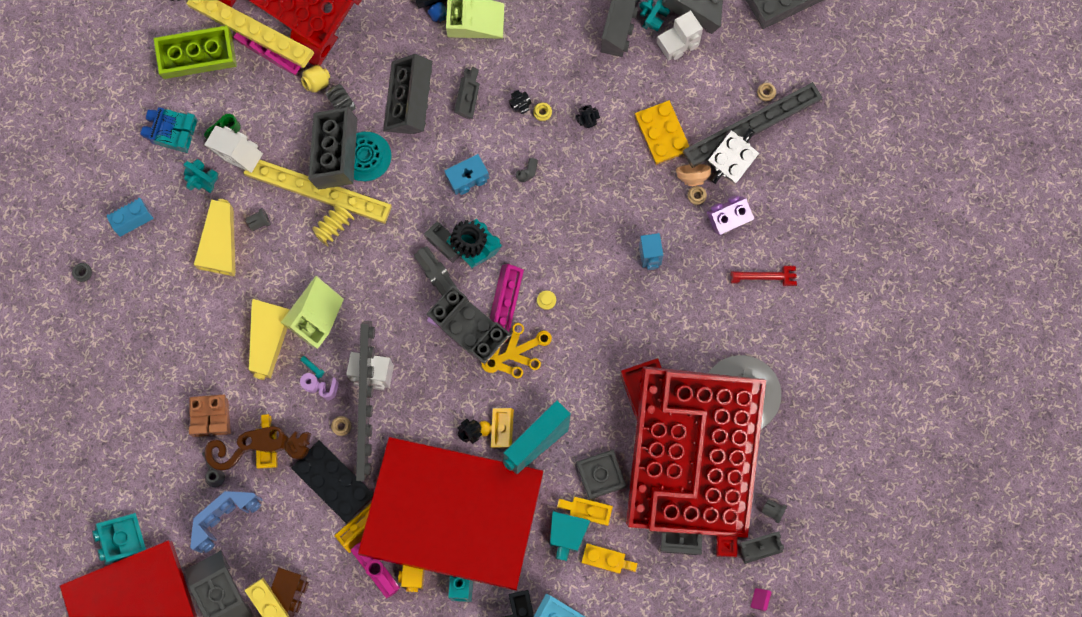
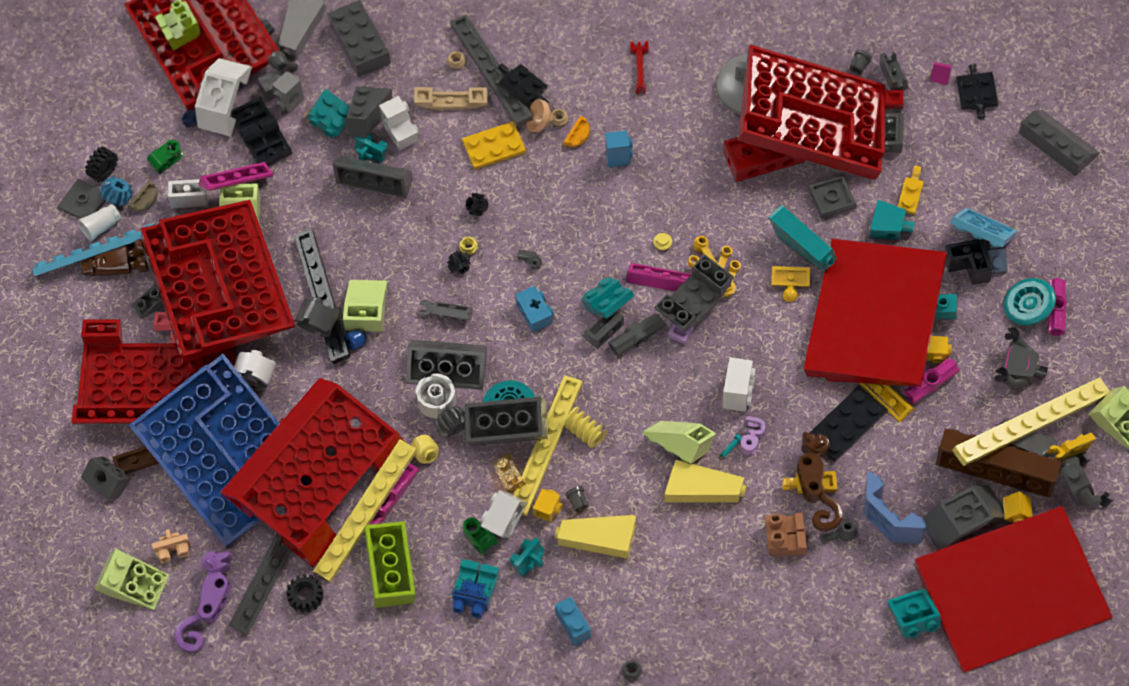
camera: 90 degrees left, 15 degrees down
(251, 192) = (547, 505): none -> yellow brick
(286, 156) = (508, 473): none -> clear yellow plate
(341, 419) = (791, 412): tan plate -> none
(360, 87) = (435, 395): none -> white brick
(366, 391) = (768, 376): dark grey plate -> none
(467, 248) = (611, 299): black tyre -> none
(469, 431) = (794, 302): black gear -> none
(587, 509) = (866, 207): yellow plate -> none
(677, 215) = (579, 133): none -> light orange plate
(717, 86) = (442, 100): none -> tan slope
(730, 214) = (581, 88): brick -> none

